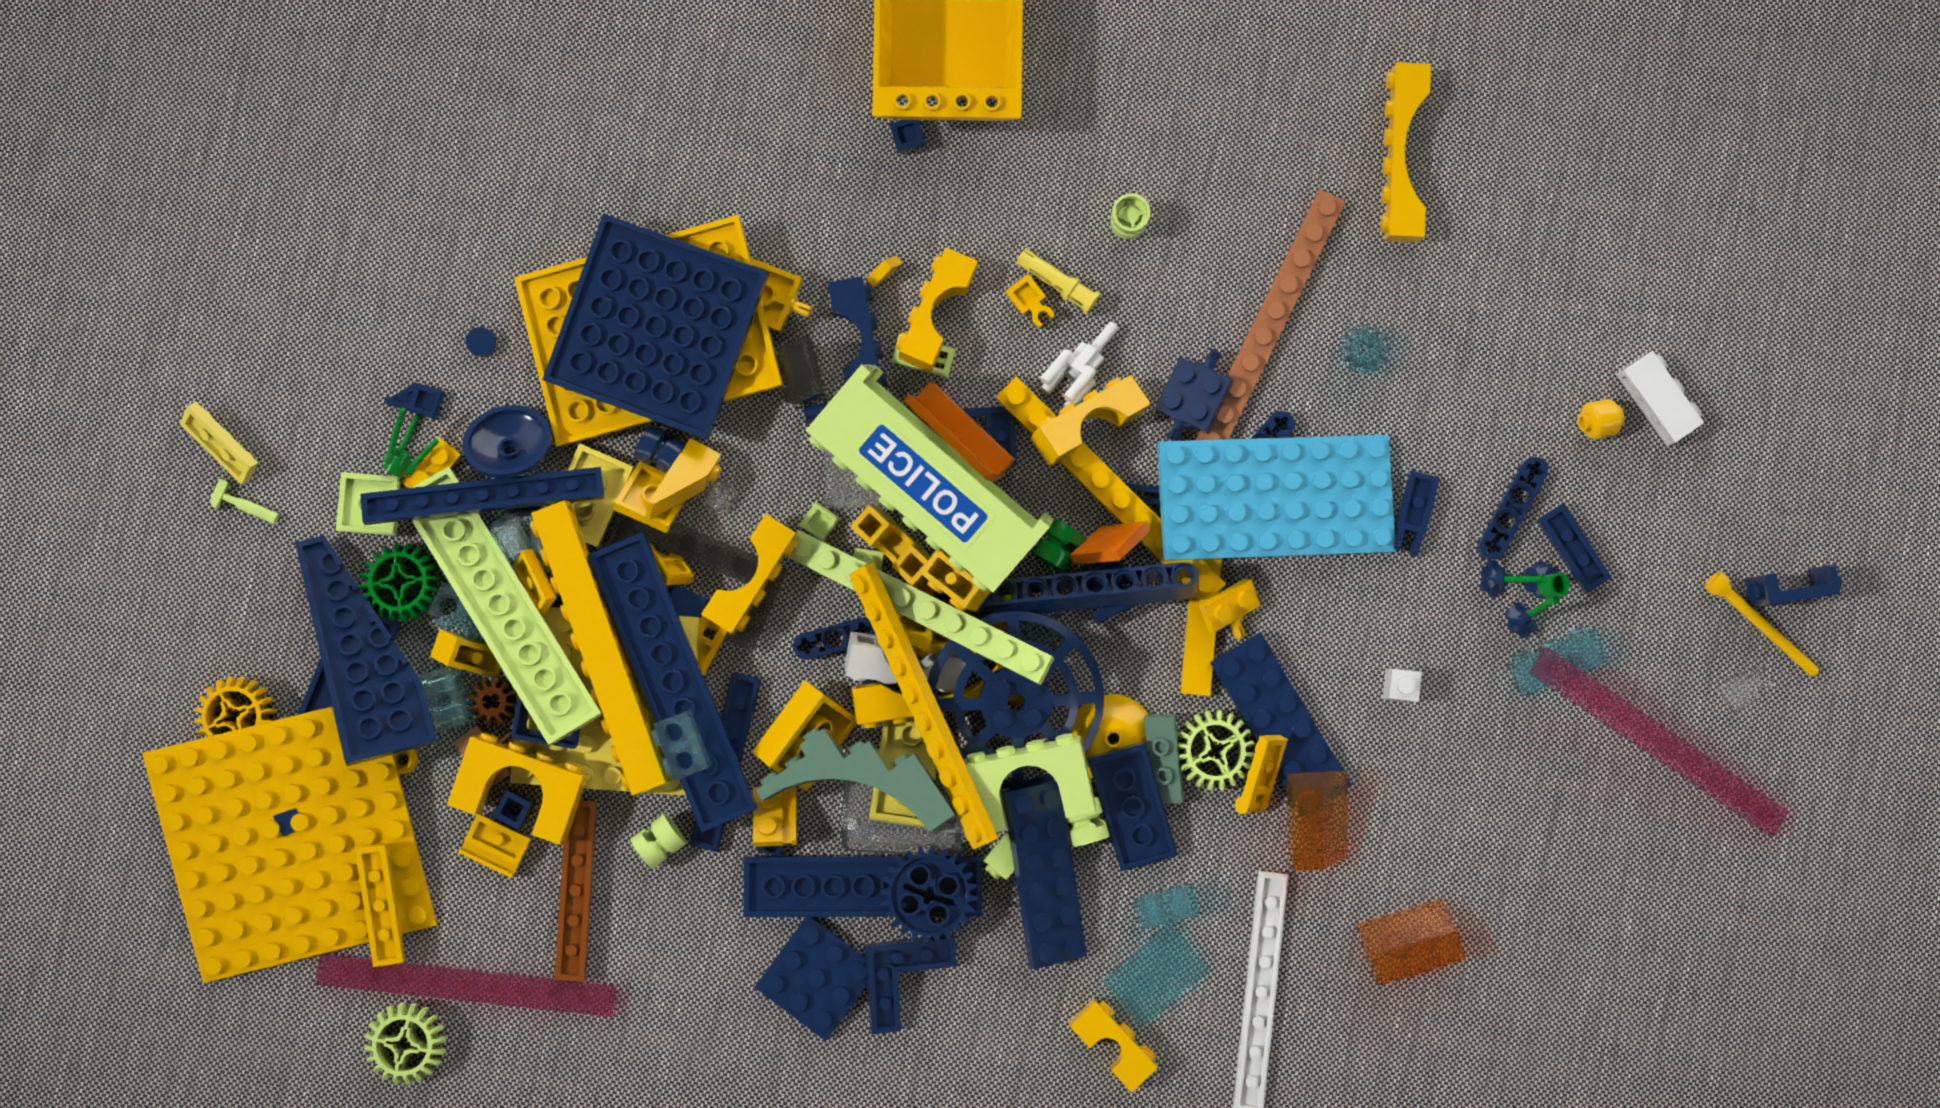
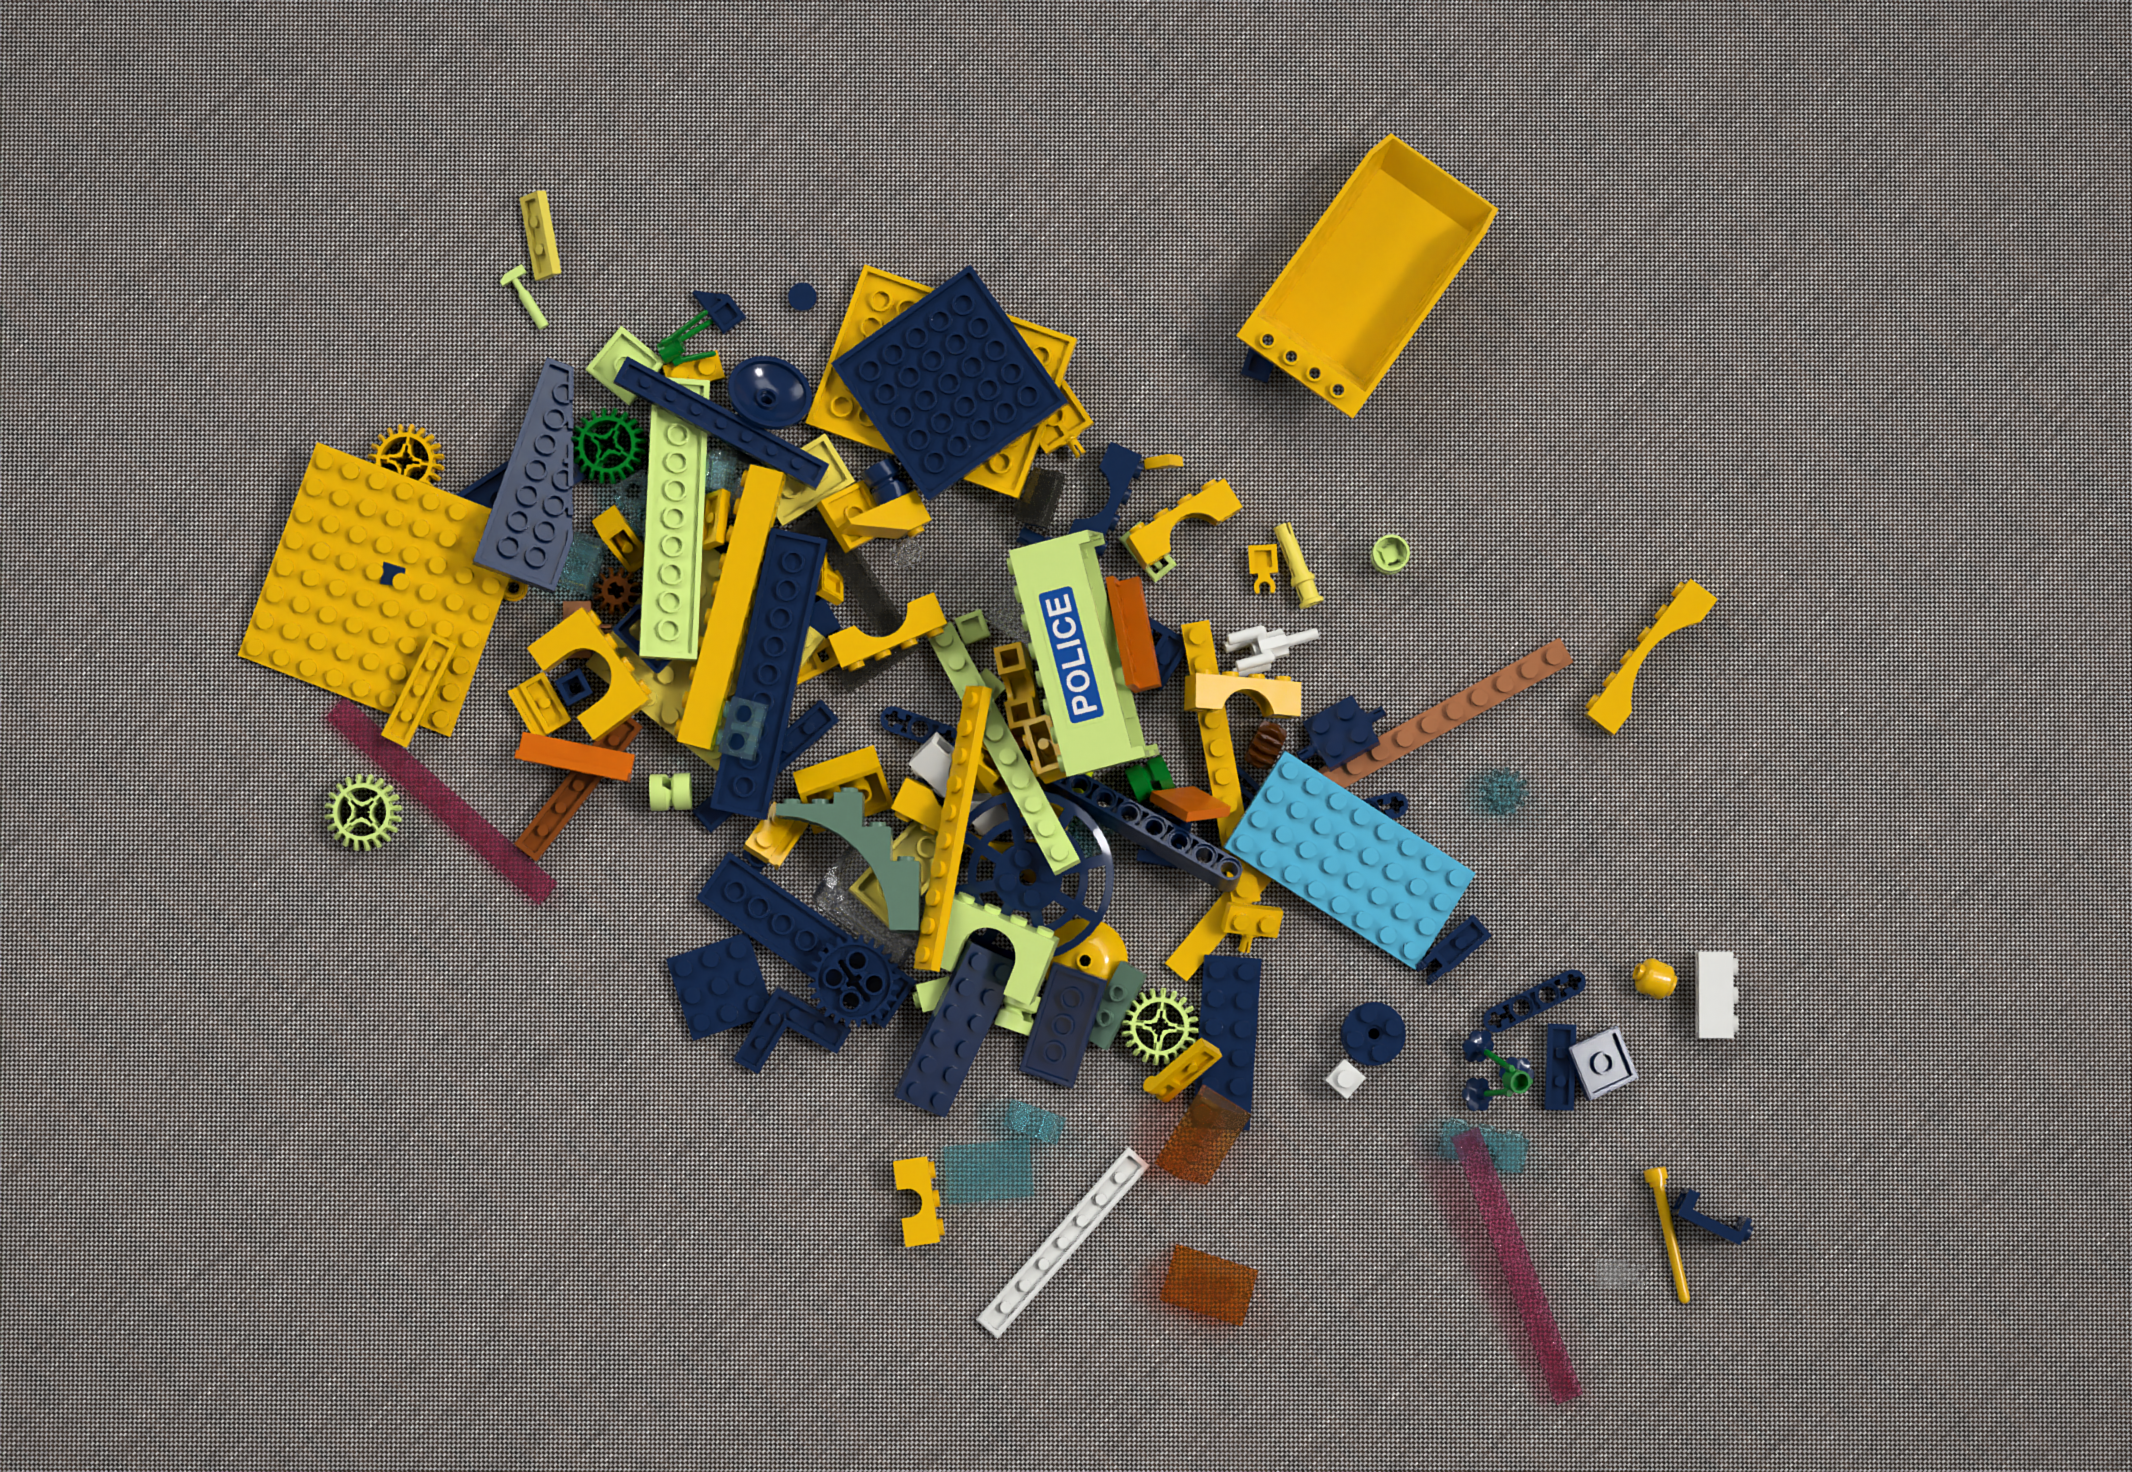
camera: 35 degrees right, 0 degrees up
(555, 868) = (575, 757): none -> orange fence
(1138, 449) = (1265, 745): none -> reddish brown gear
(1415, 626) = (1389, 1029): none -> dark blue wheel
(1607, 520) = (1602, 1063): none -> tile

